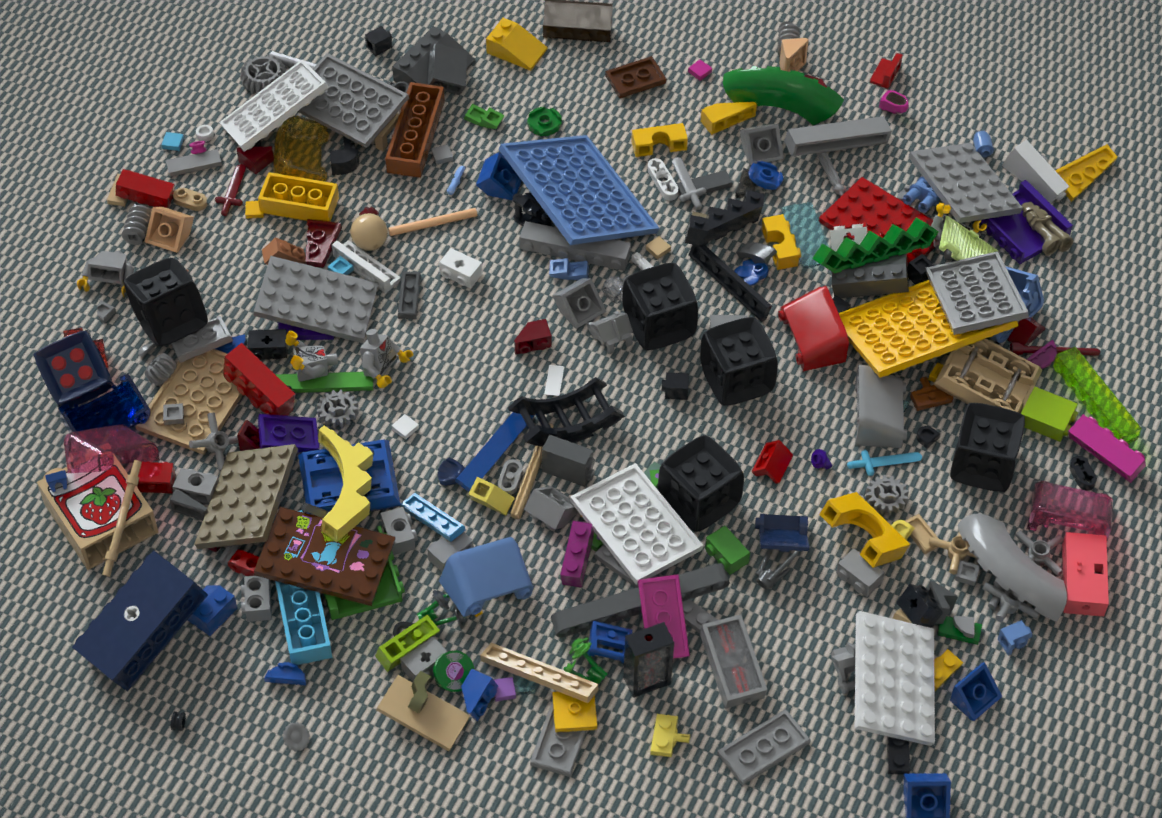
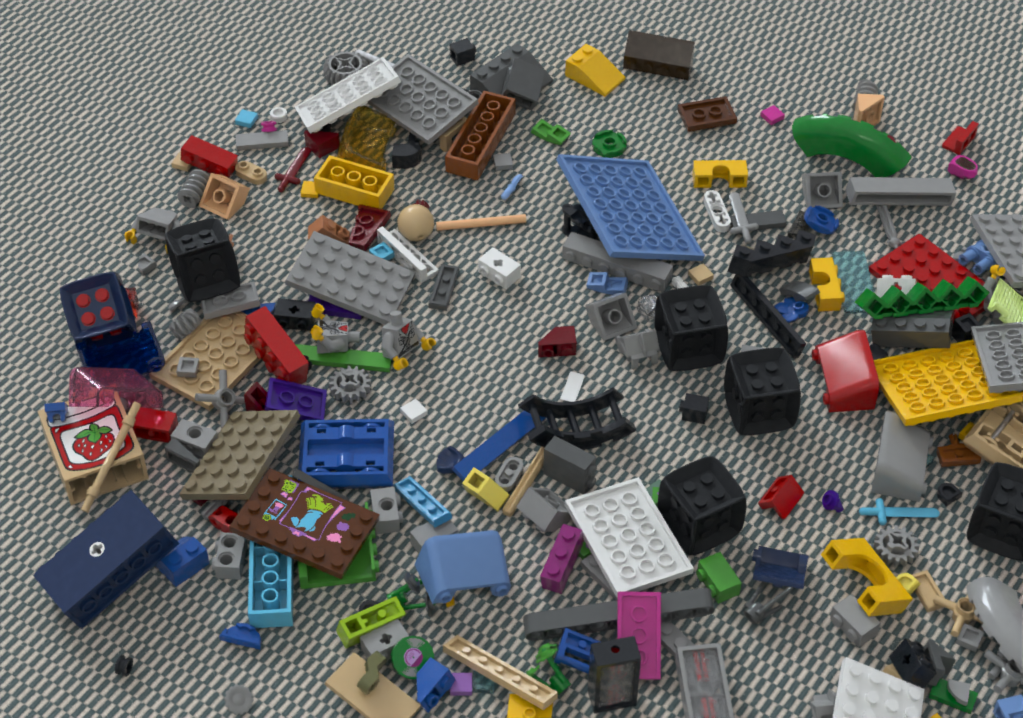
camera: 10 degrees right, 5 degrees down
(352, 504) = (342, 474): light yellow arch -> none
(498, 178) = (553, 189): blue slope -> none
(724, 115) = (790, 159): yellow slope -> none

